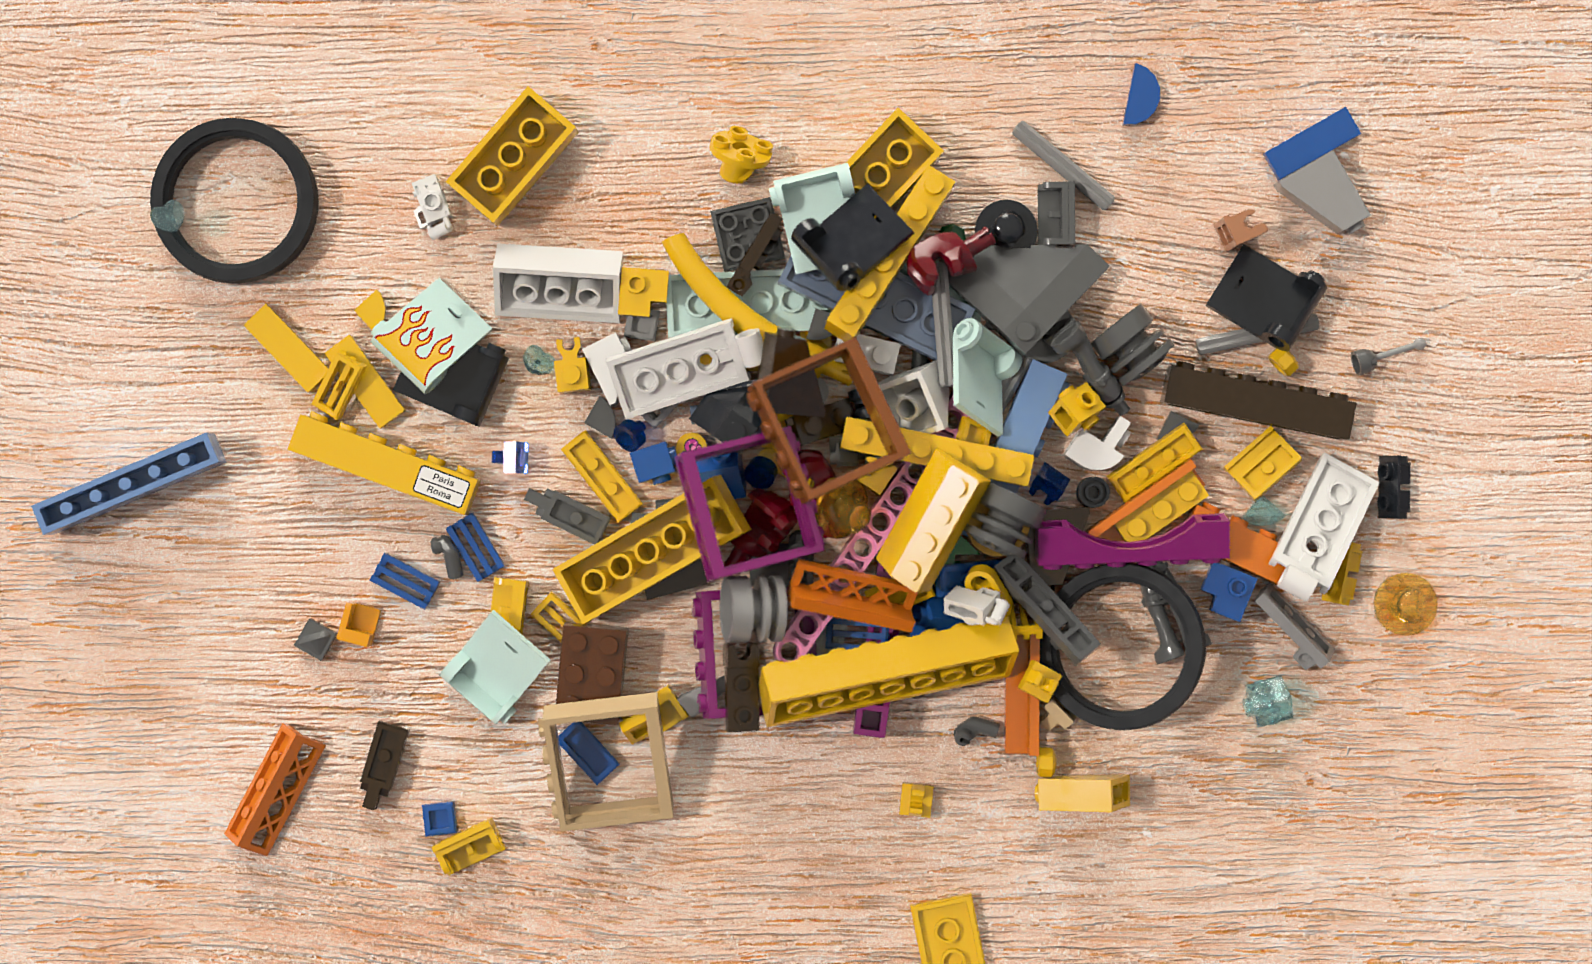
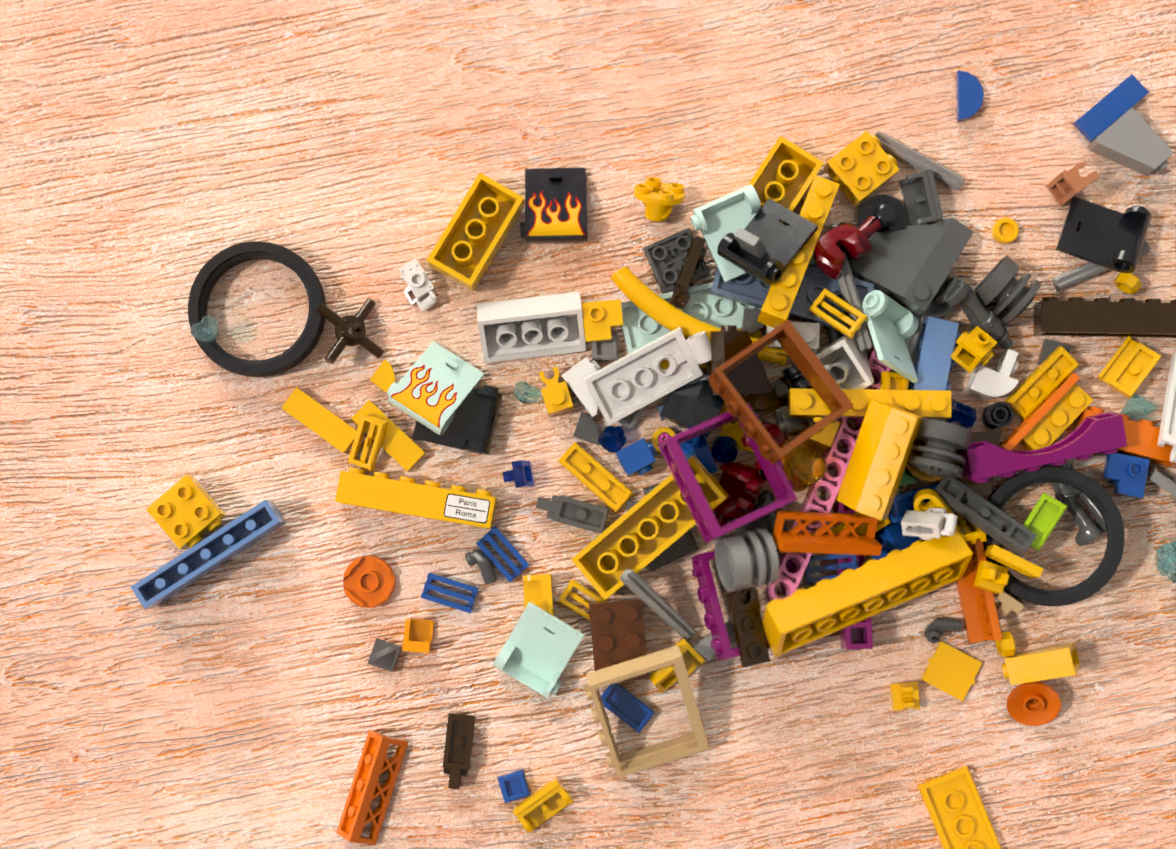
camera: 10 degrees left, 5 degrees down
(111, 430) = (186, 512): none -> yellow brick
(312, 550) = (369, 581): none -> orange tile
(330, 246) = (342, 326): none -> dark brown bar
(614, 139) = (555, 205): none -> black door
(644, 640) = (657, 604): none -> light grey axle
(830, 235) = (750, 242): none -> light grey tile
(938, 357) = (855, 326): none -> yellow tile
(977, 781) = (951, 671): none -> yellow piece
(992, 163) = (861, 168): none -> yellow brick
(1059, 845) = (1033, 703): none -> orange dish
(1067, 668) = (1013, 561): none -> yellow tile
(1115, 625) = (1044, 518): none -> lime tile
(1151, 270) = (1005, 231): none -> yellow tile

